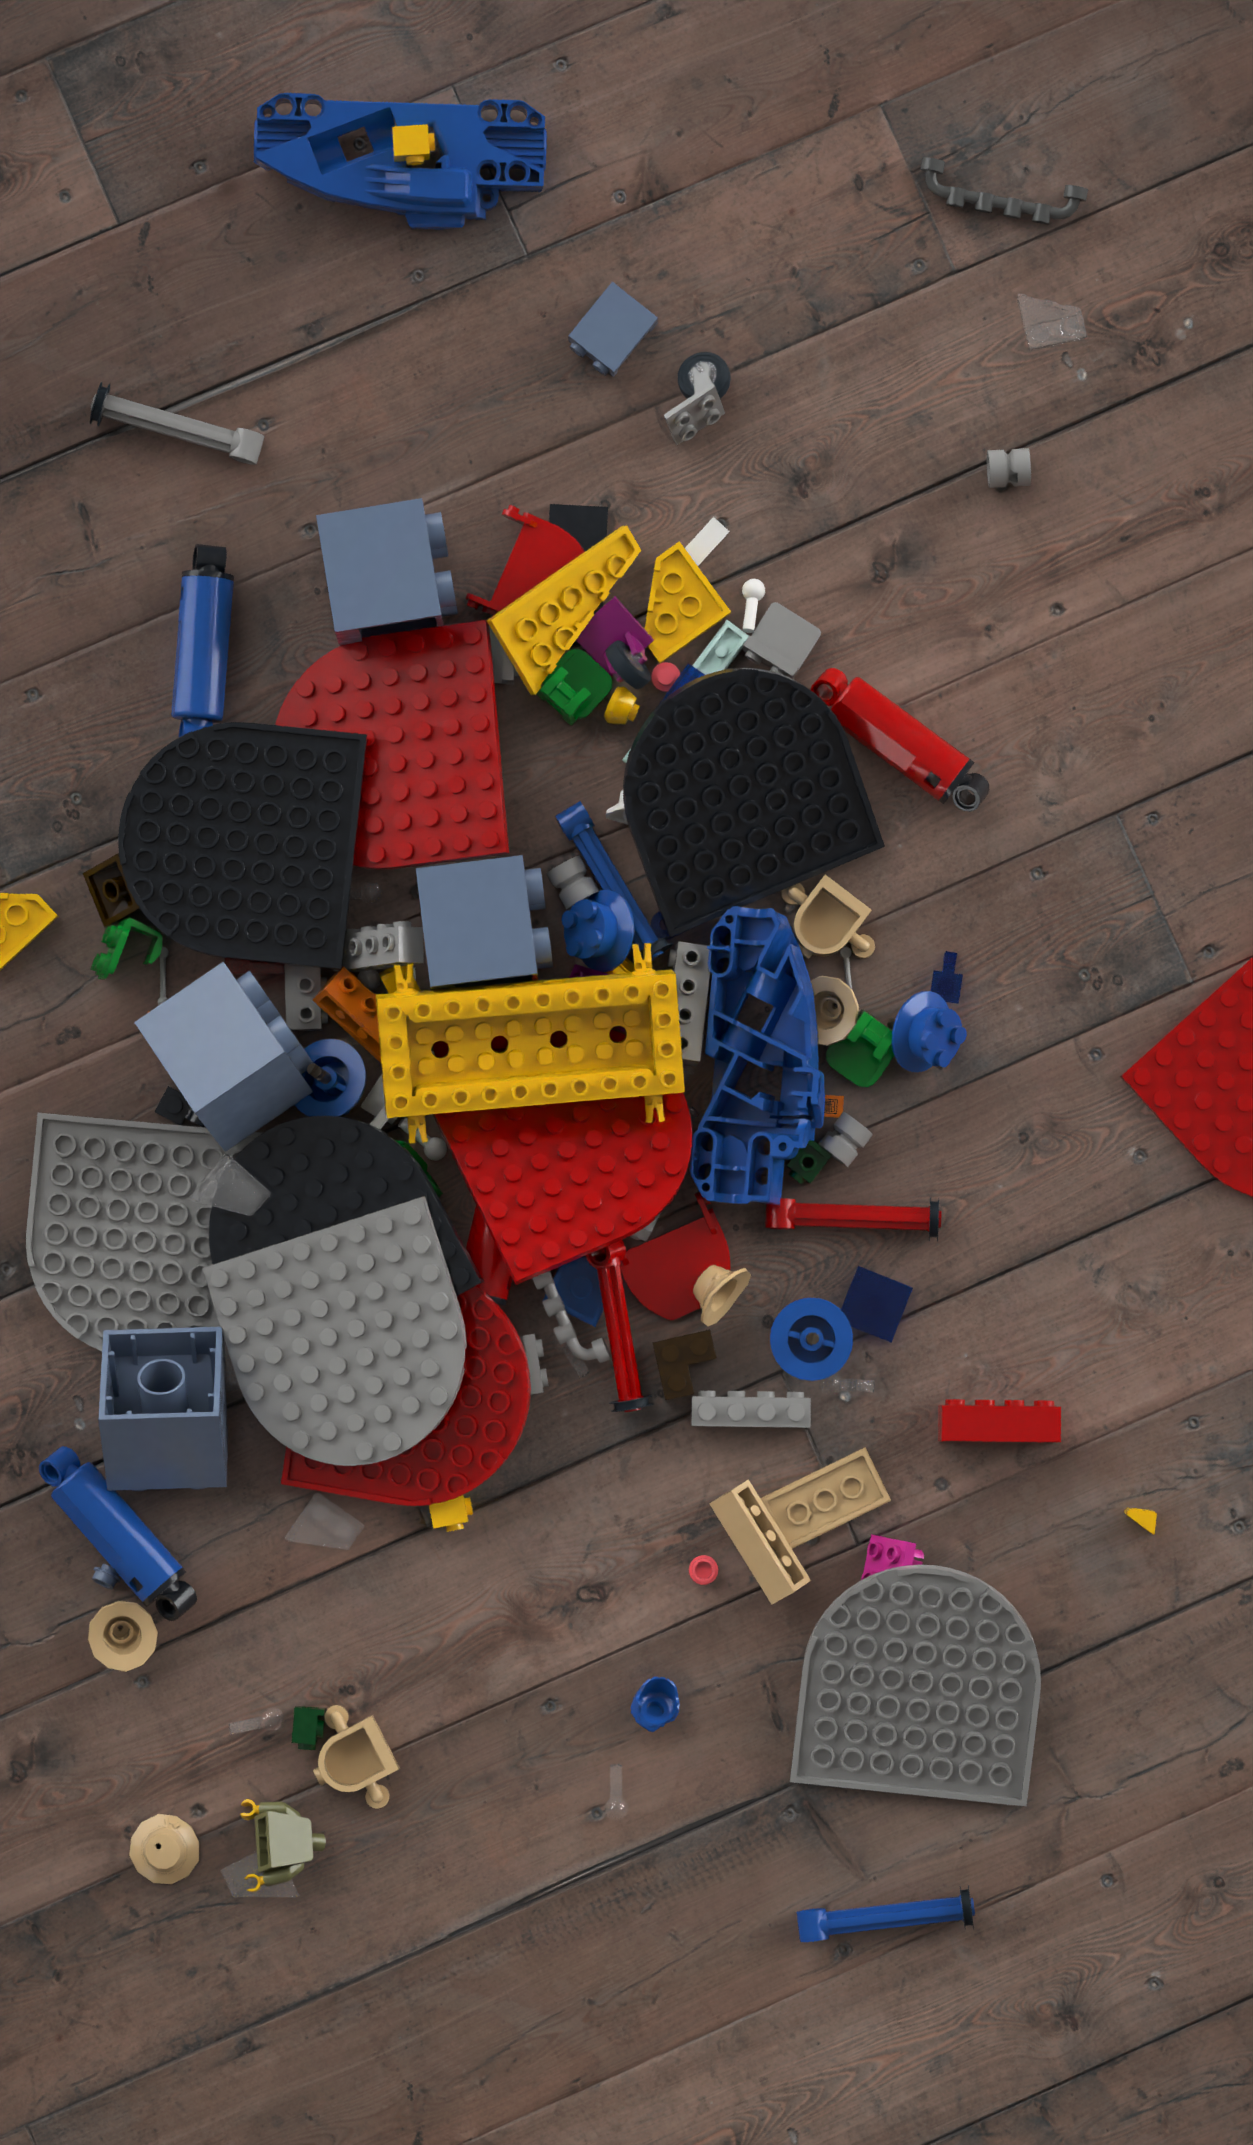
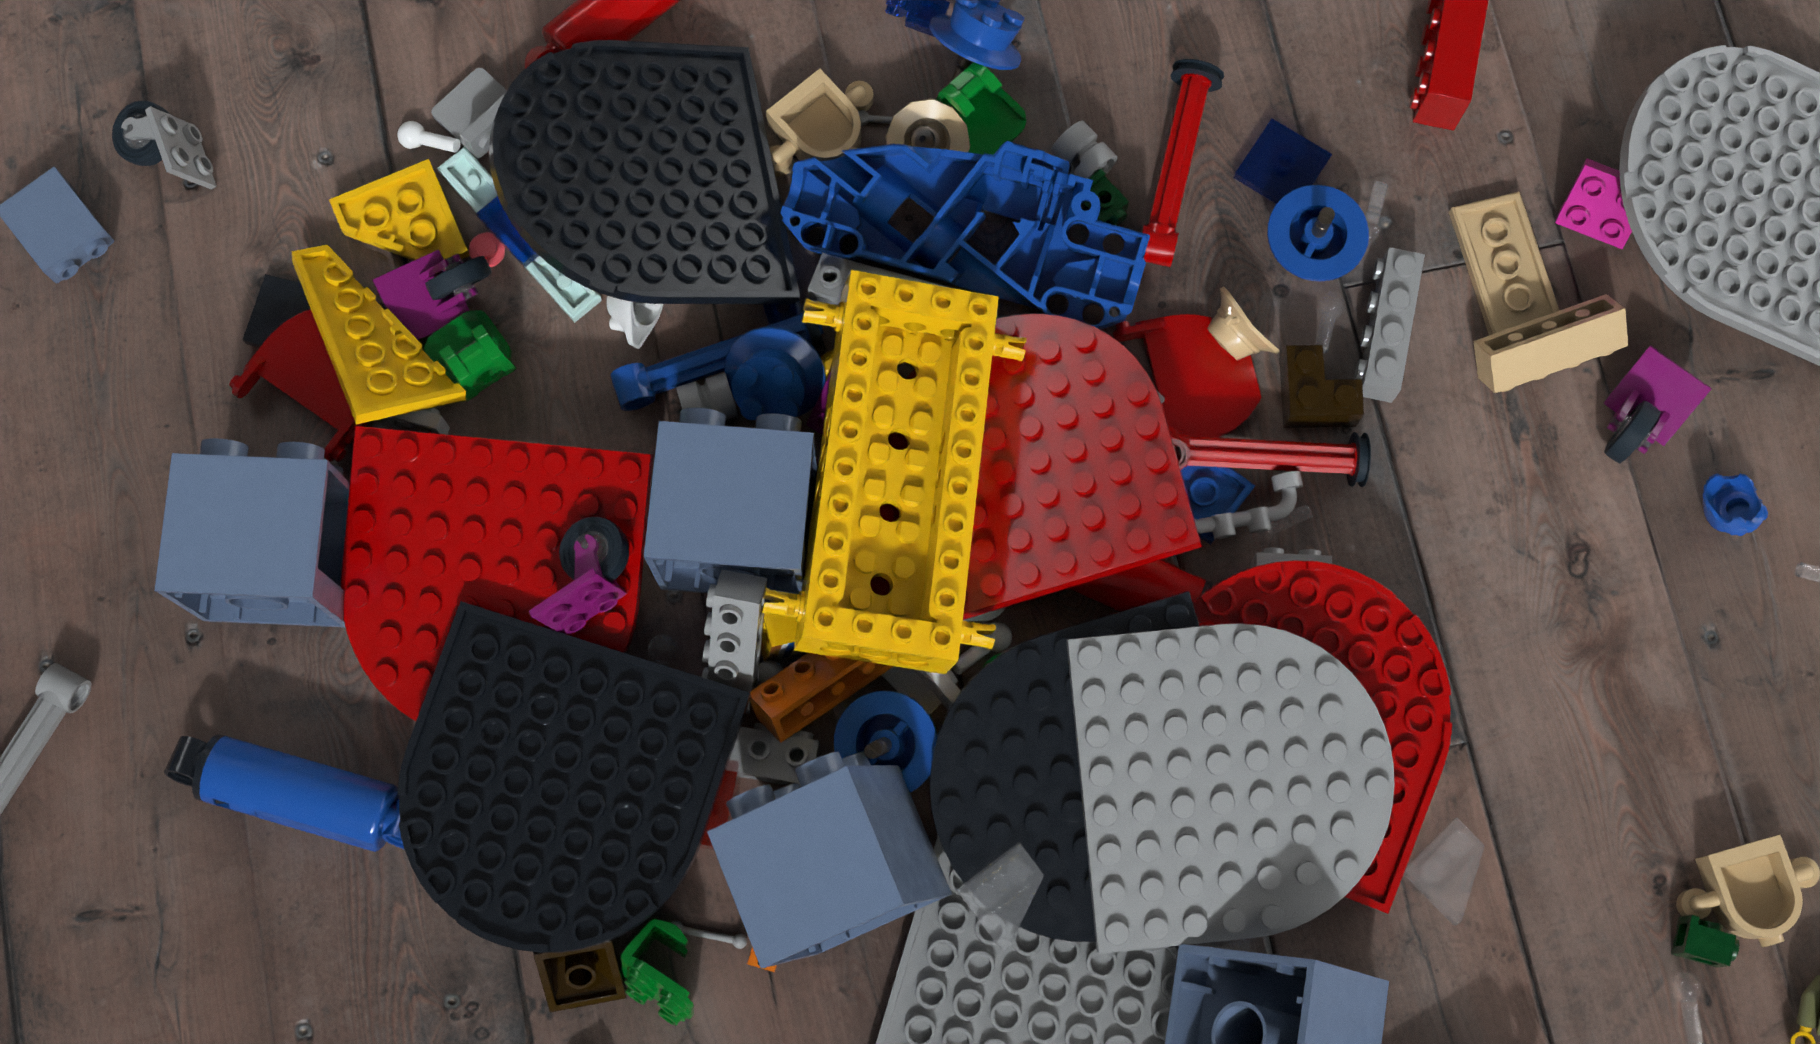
camera: 75 degrees left, 10 degrees down
(176, 1108) = (878, 949): black plate -> none
(417, 827) = (593, 556): none -> magenta plate
(451, 1513) = (1465, 706): yellow brick -> none
(621, 707) = (509, 304): yellow cone -> none
(703, 1570) = (1570, 420): coral plate -> none
(706, 540) = (337, 173): white sticker -> none
(731, 1632) = (1651, 404): none -> magenta plate
(761, 1363) = (1330, 307): none -> clear bar

